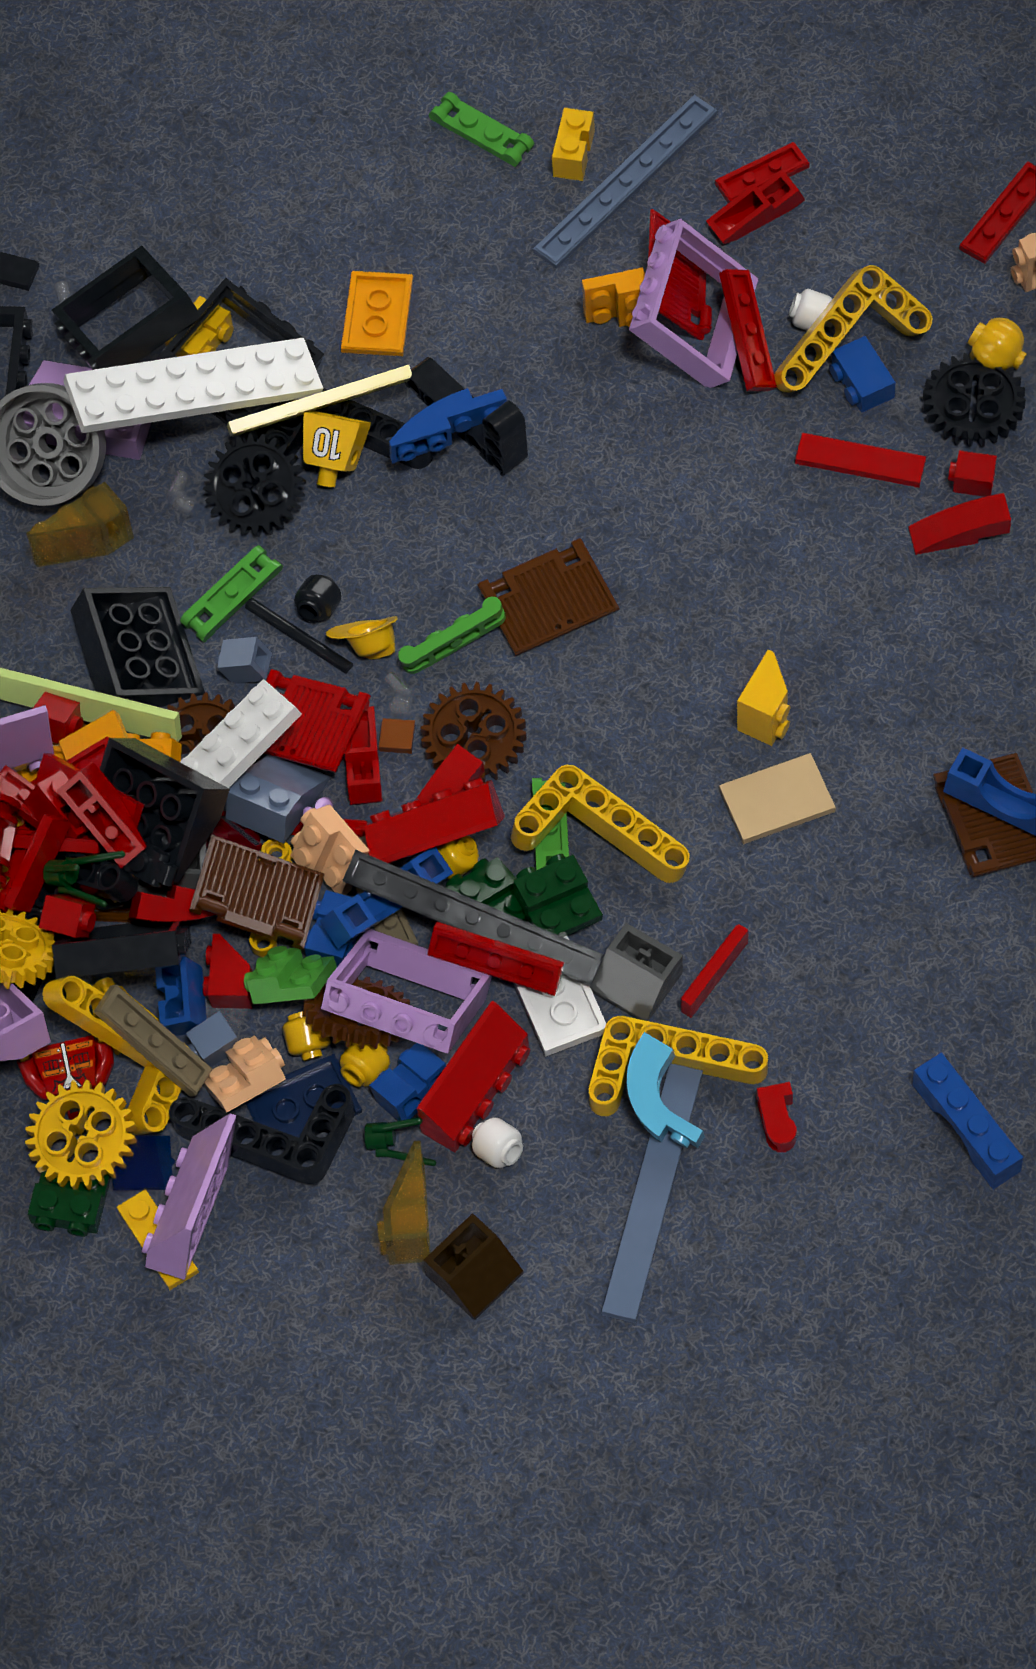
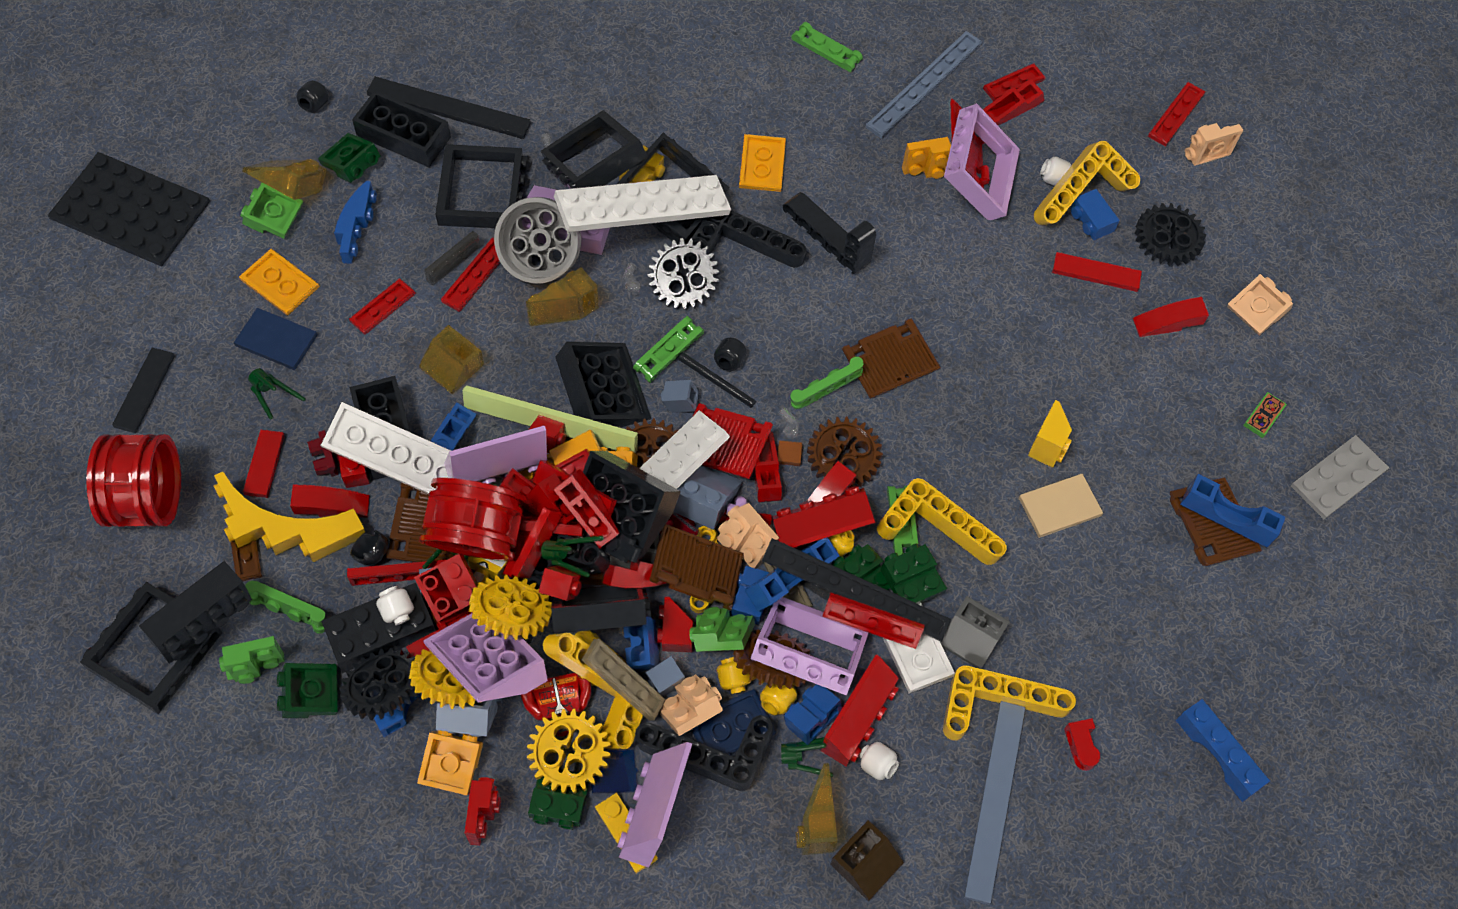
camera: 10 degrees left, 0 degrees up
(319, 401) = (729, 217): light yellow tile -> none
(332, 444) = (738, 248): yellow torso -> none
(368, 637) = (767, 383): yellow piece -> none
(433, 425) = (810, 236): blue slope -> none
(572, 144) = (889, 58): yellow brick -> none
(644, 1076) = (989, 728): medium azure arch -> none
(714, 970) = (1028, 631): red tile -> none
(747, 330) = (1017, 182): red tile -> none
(973, 473) = (1175, 283): red brick -> none
(998, 344) = (1183, 197): yellow plant -> none

